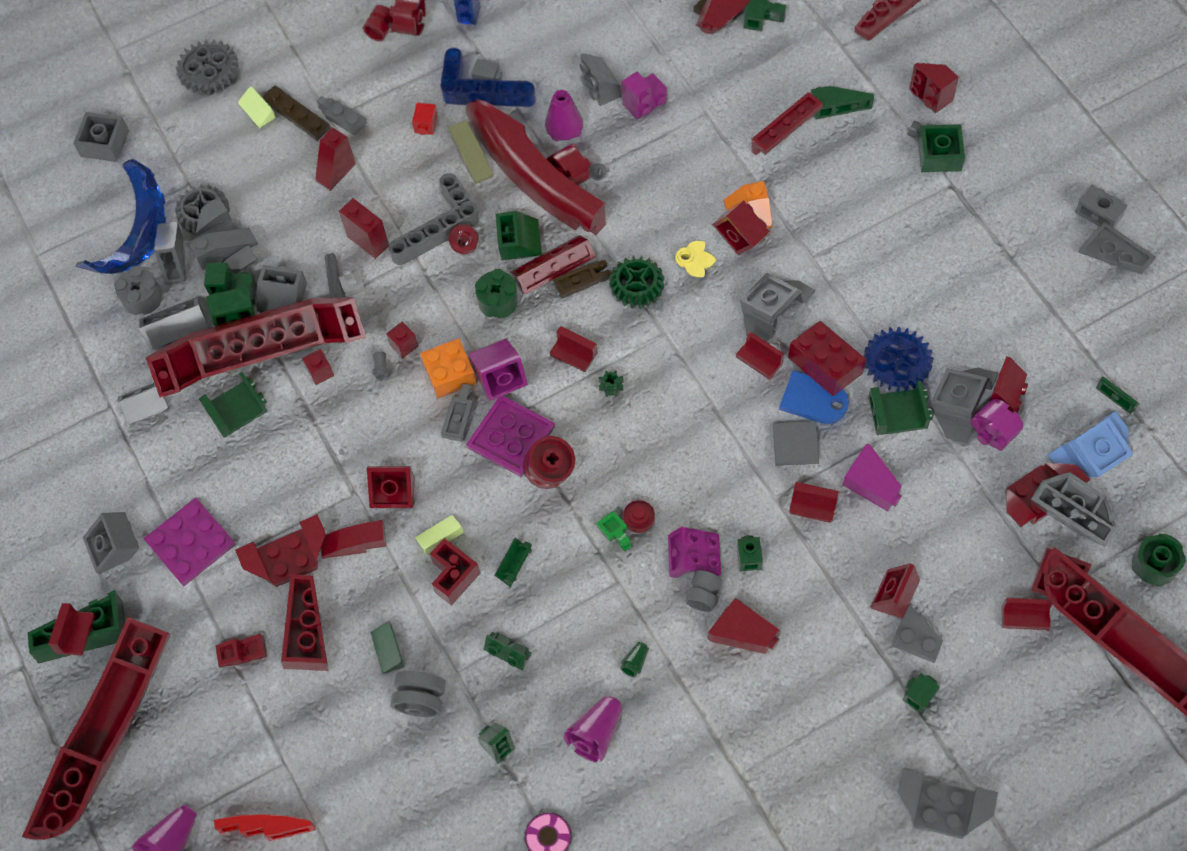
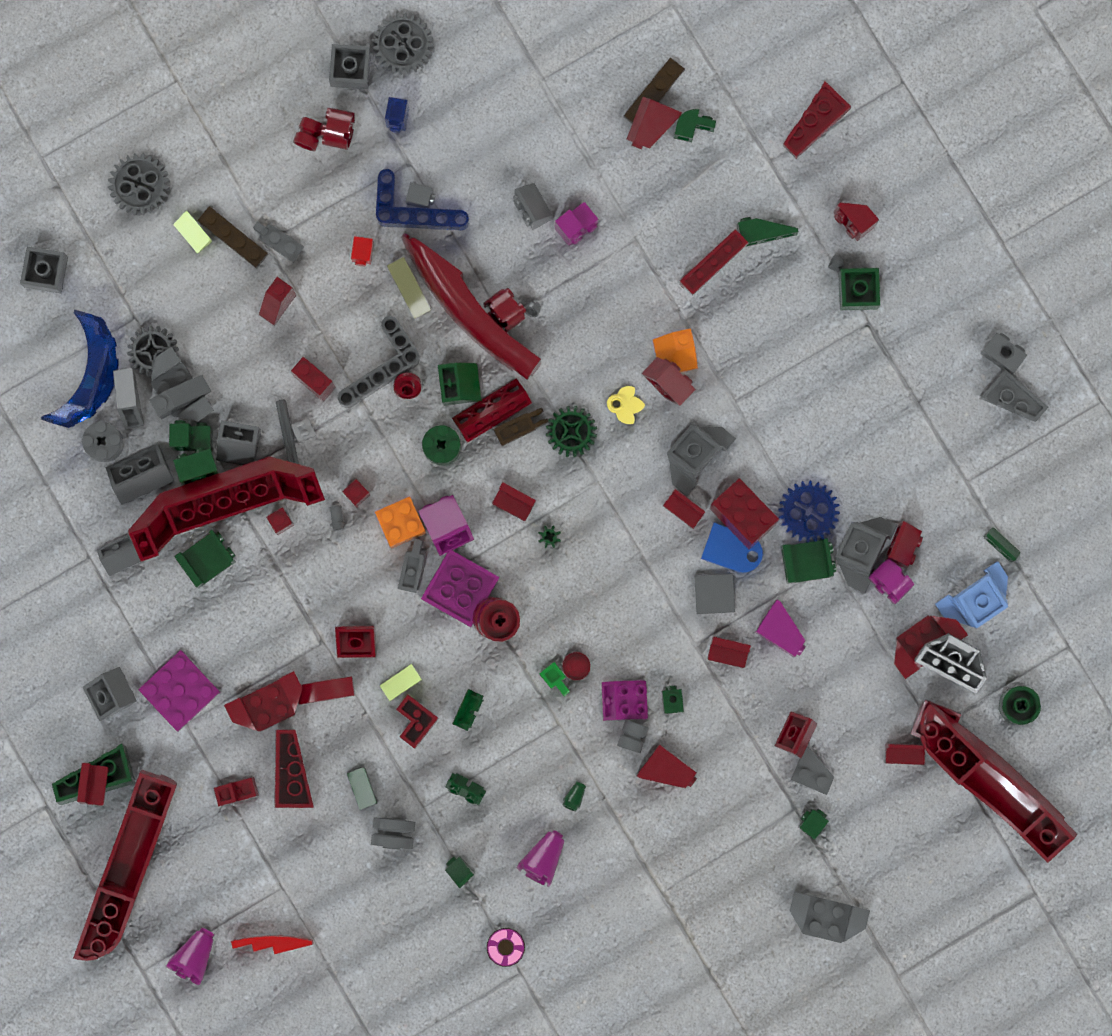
camera: 10 degrees left, 20 degrees up
(563, 117) = (498, 259): magenta cone -> none

